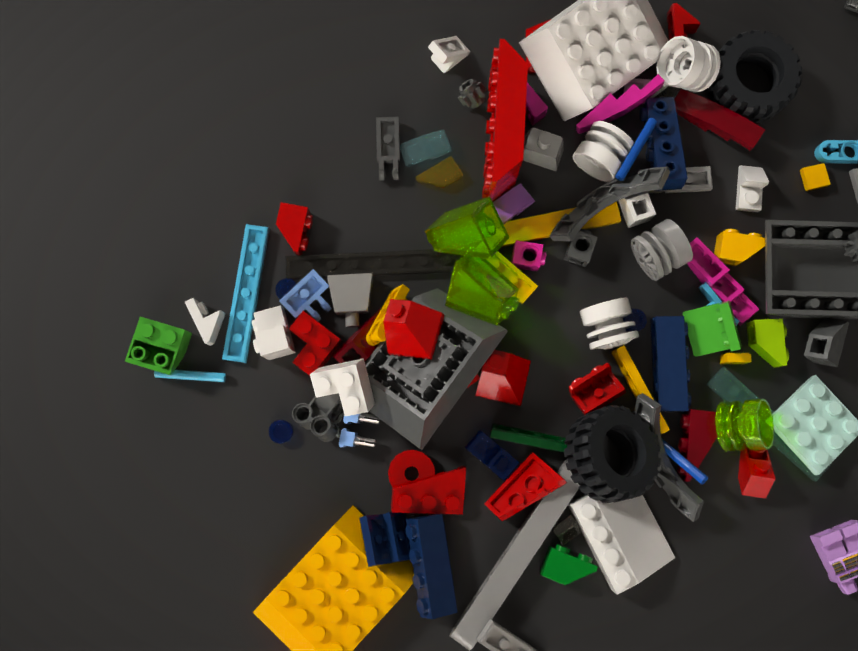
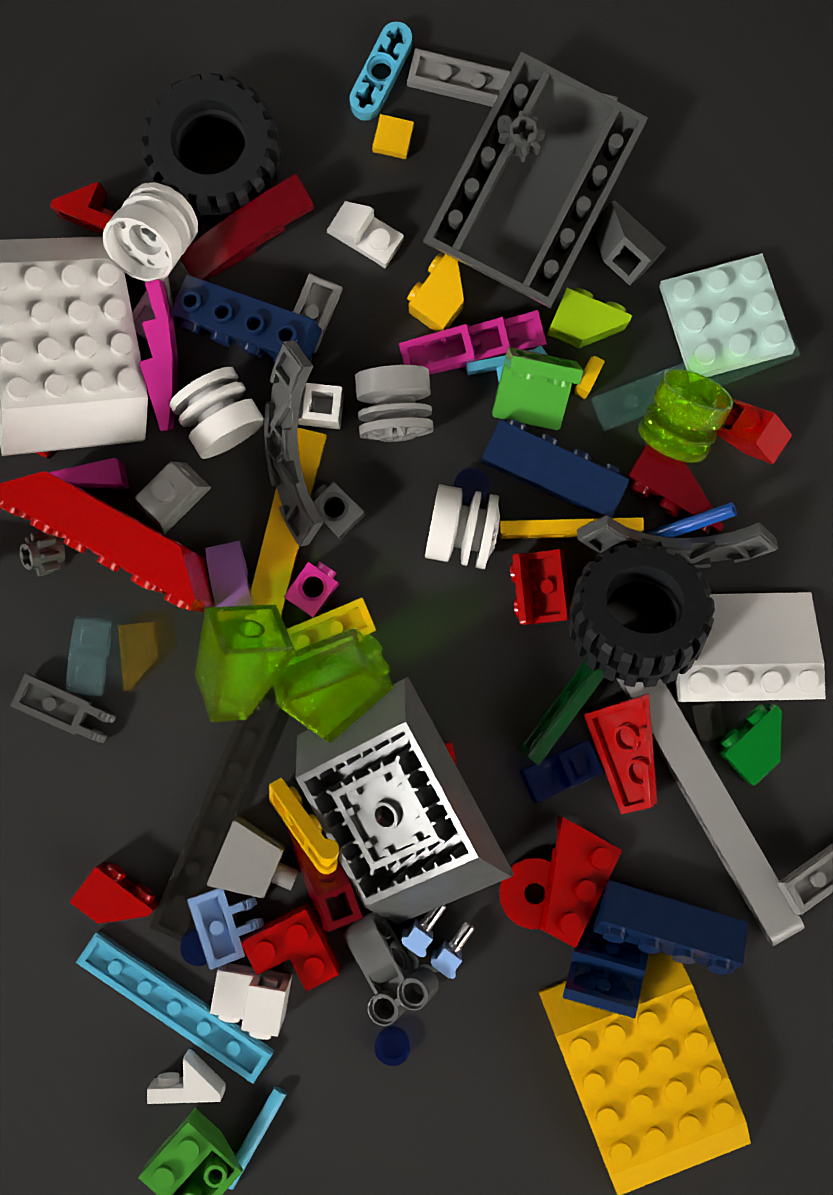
camera: 65 degrees left, 5 degrees up
(350, 381) = (375, 928): white brick -> none
(411, 329) = (341, 808): red slope -> none
(503, 378) = (465, 704): red slope -> none
(636, 148) = (237, 368): blue piece -> none

